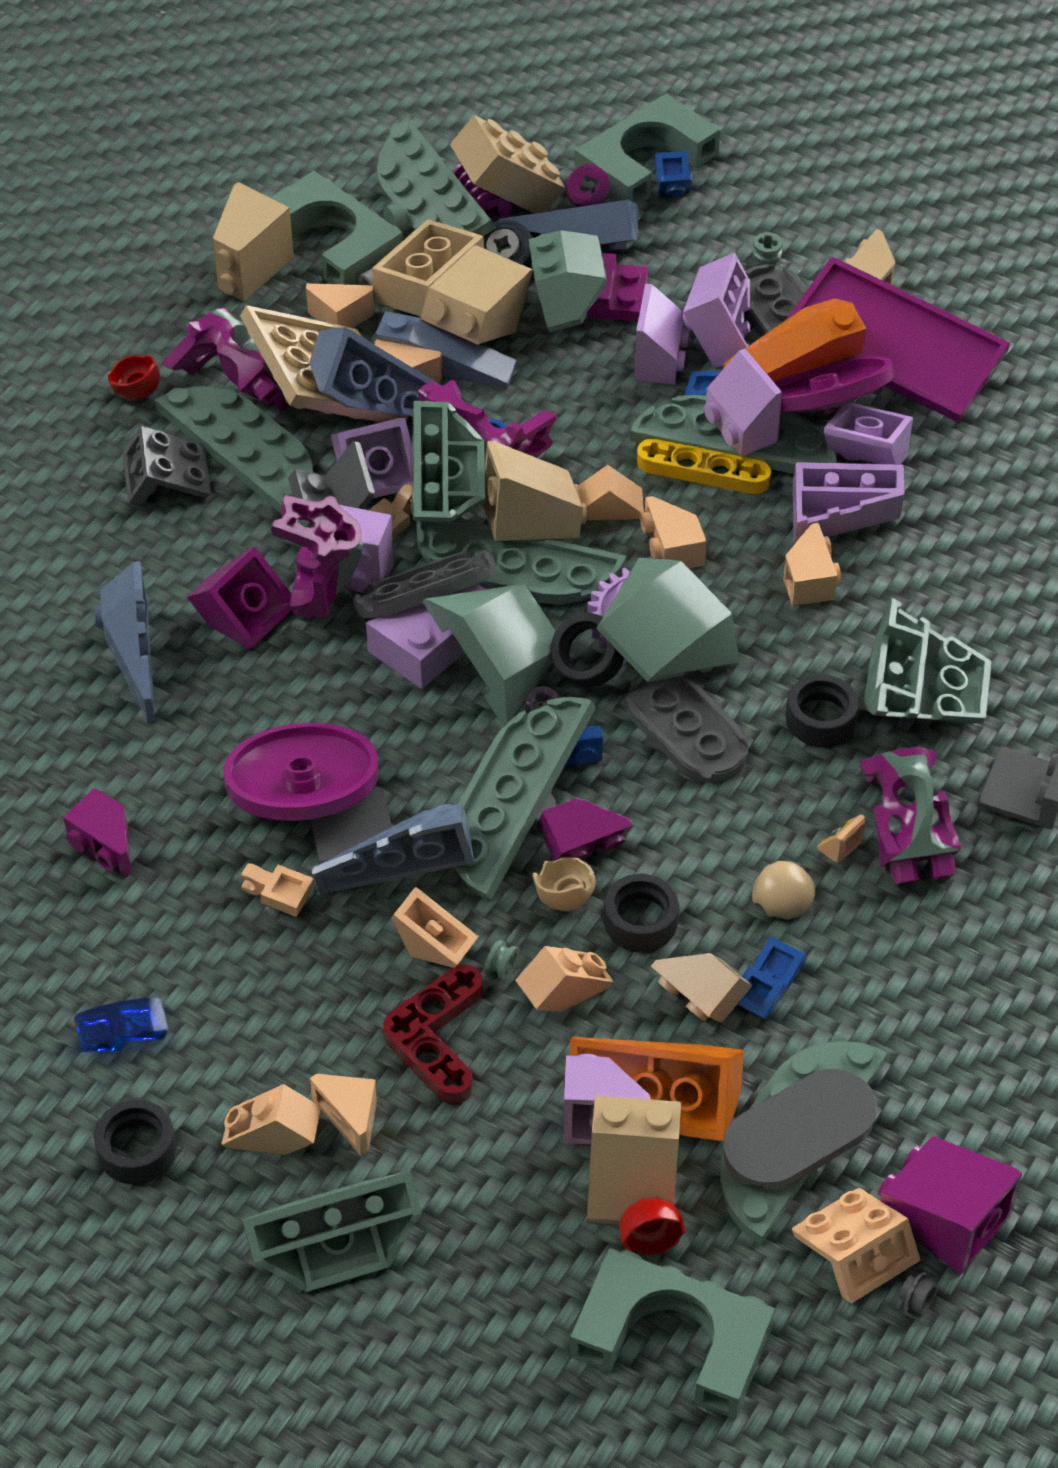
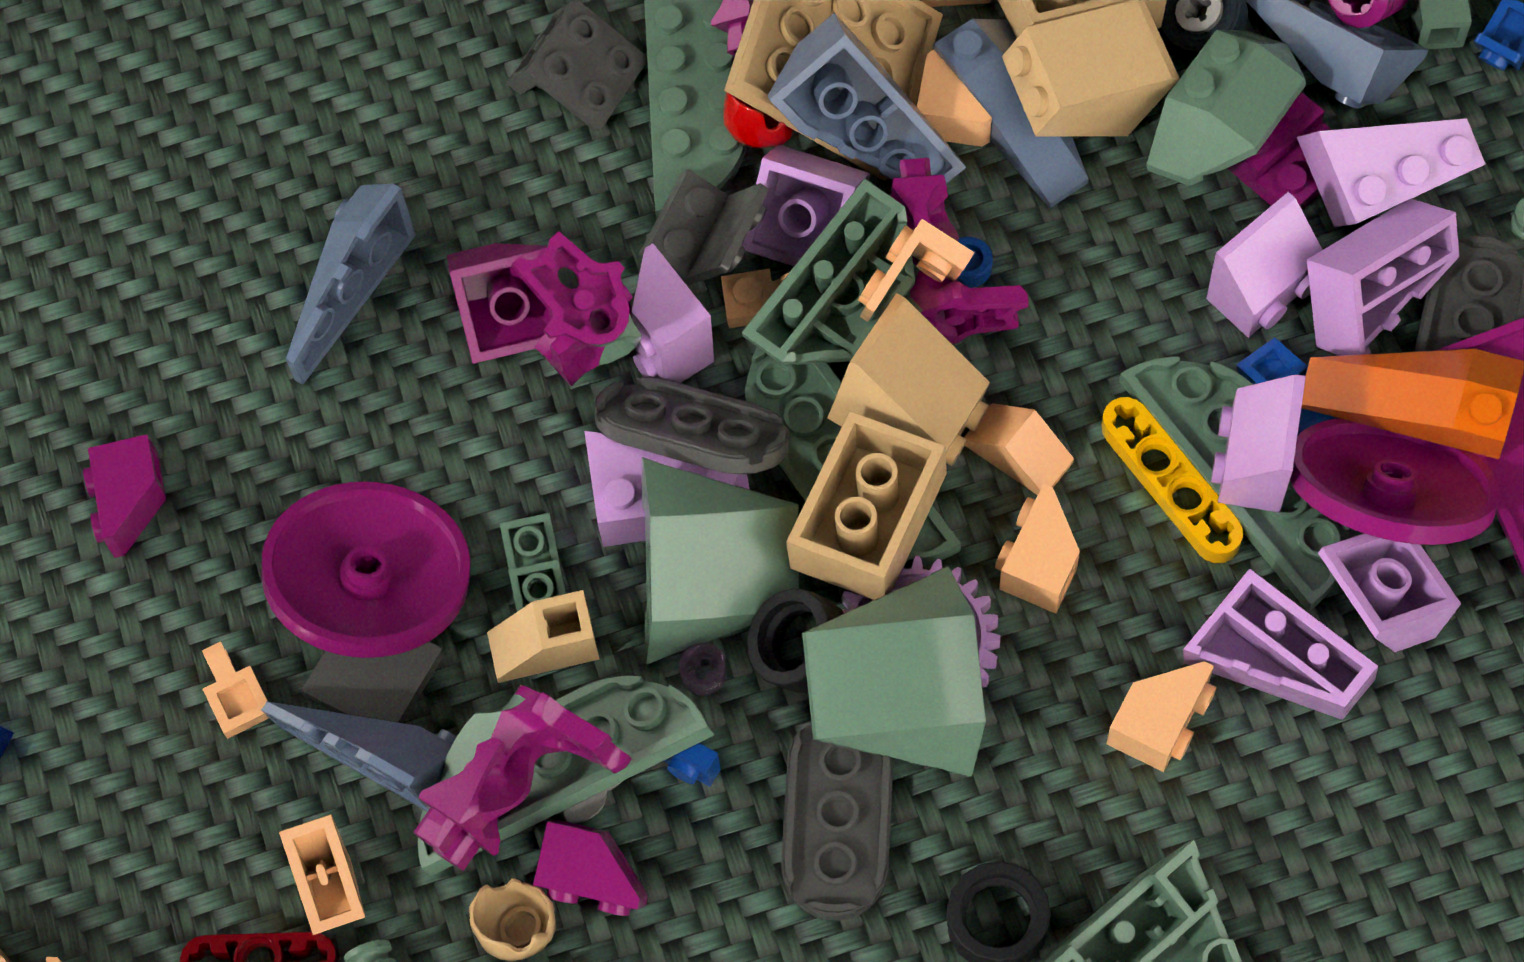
camera: 45 degrees right, 15 degrees up
(308, 426) = (752, 126): none -> red hair
(391, 719) = (532, 559): none -> sand green slope
(441, 739) = (543, 637): none -> tan slope
(484, 791) = (494, 769): none -> magenta hips
(489, 410) = (938, 256): none -> light nougat bracket
(567, 557) = (867, 507): none -> tan brick
(672, 256) = (1386, 165): none -> lavender wedge

